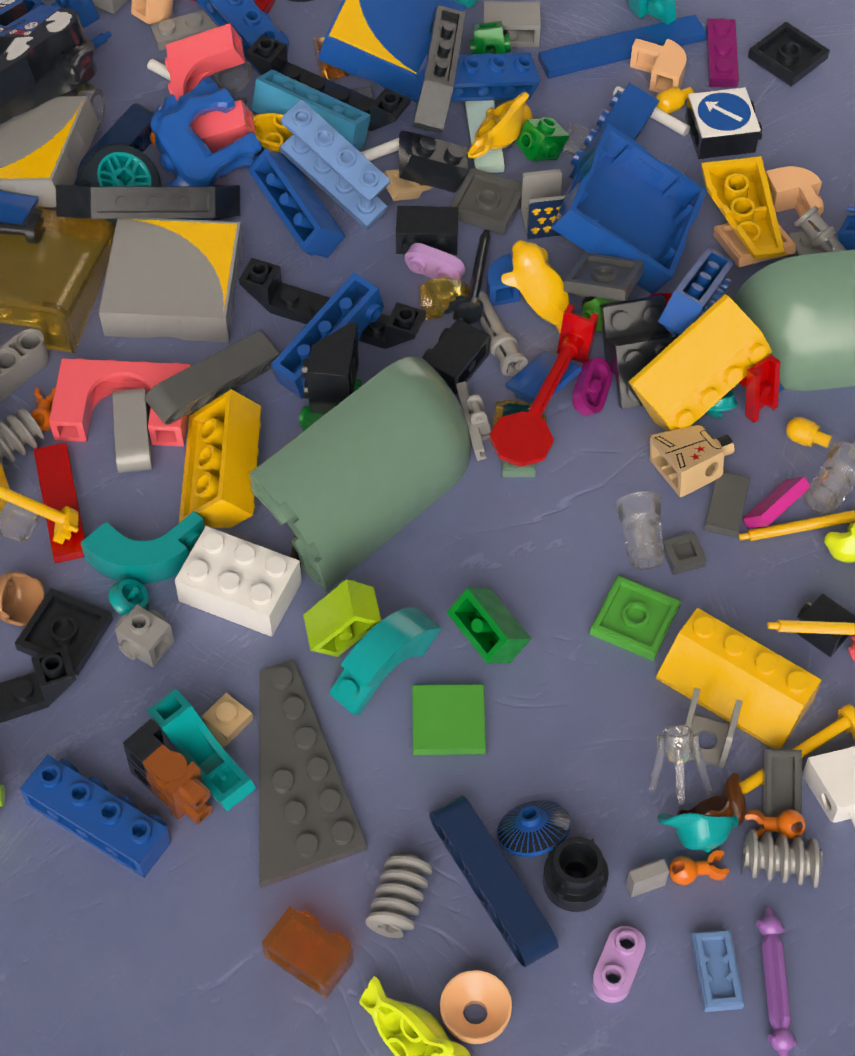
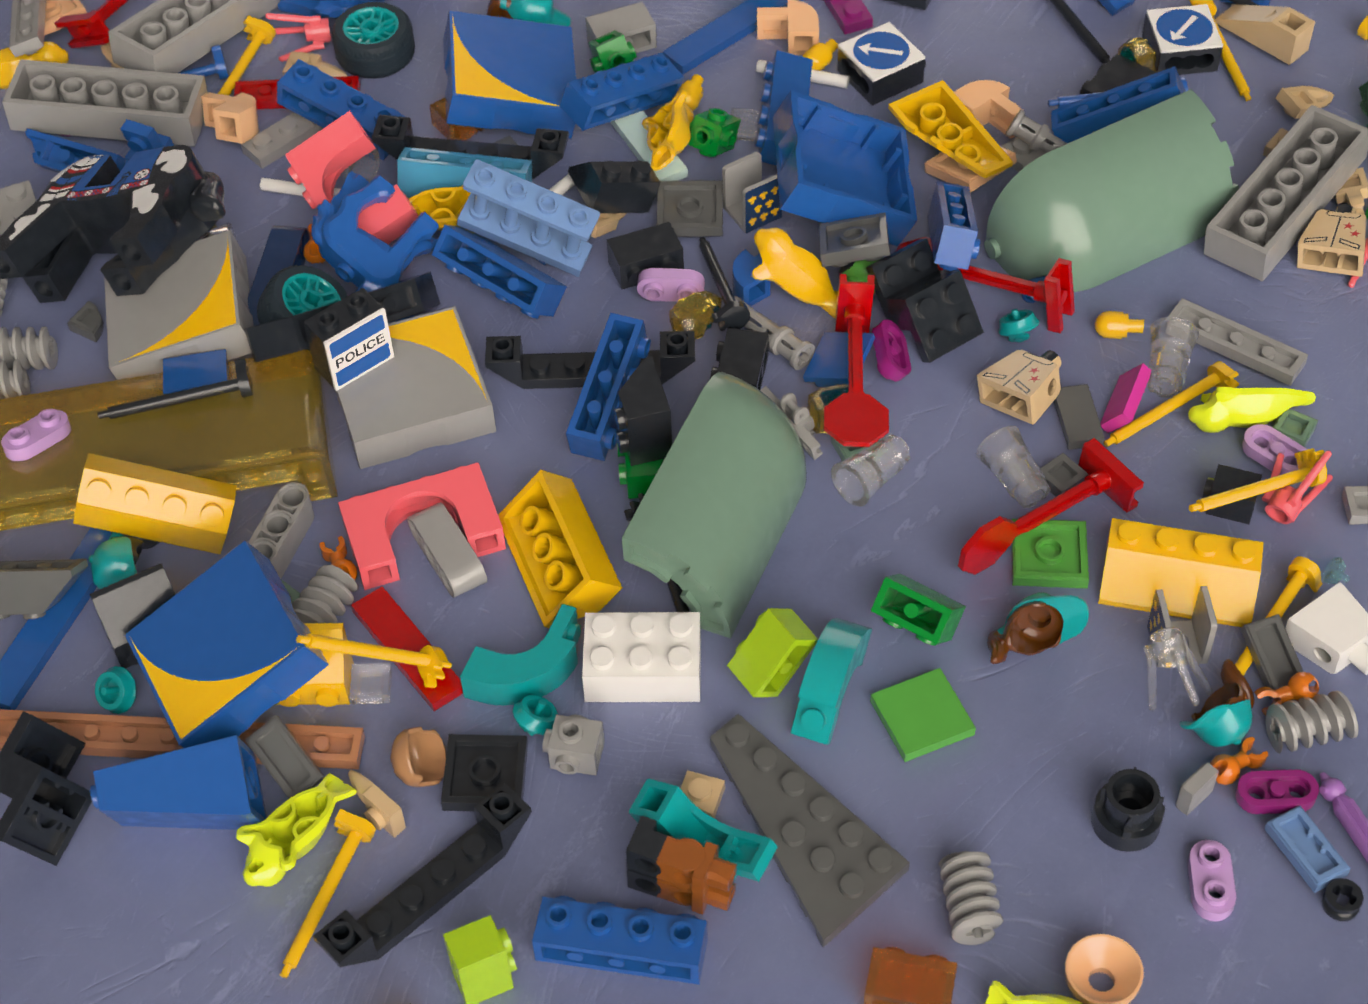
camera: 20 degrees left, 5 degrees down
(130, 222) = (349, 339): none -> piece
(212, 377) = (510, 466): dark grey beam -> none
(440, 69) = (594, 88): black slope -> none
(494, 881) = (1053, 848): dark blue beam -> none
(517, 486) = (869, 469): none -> clear plant
(533, 828) = (1065, 784): dish -> none
(542, 98) = (694, 91): none -> yellow cylinder
(582, 678) = (1038, 624): none -> reddish brown hair
(585, 588) = (1105, 475): none -> red piece
(700, 366) = (995, 292): yellow slope -> none
(718, 906) = (1275, 790): none -> magenta plate
(725, 1015) = (1332, 893): none -> black bush

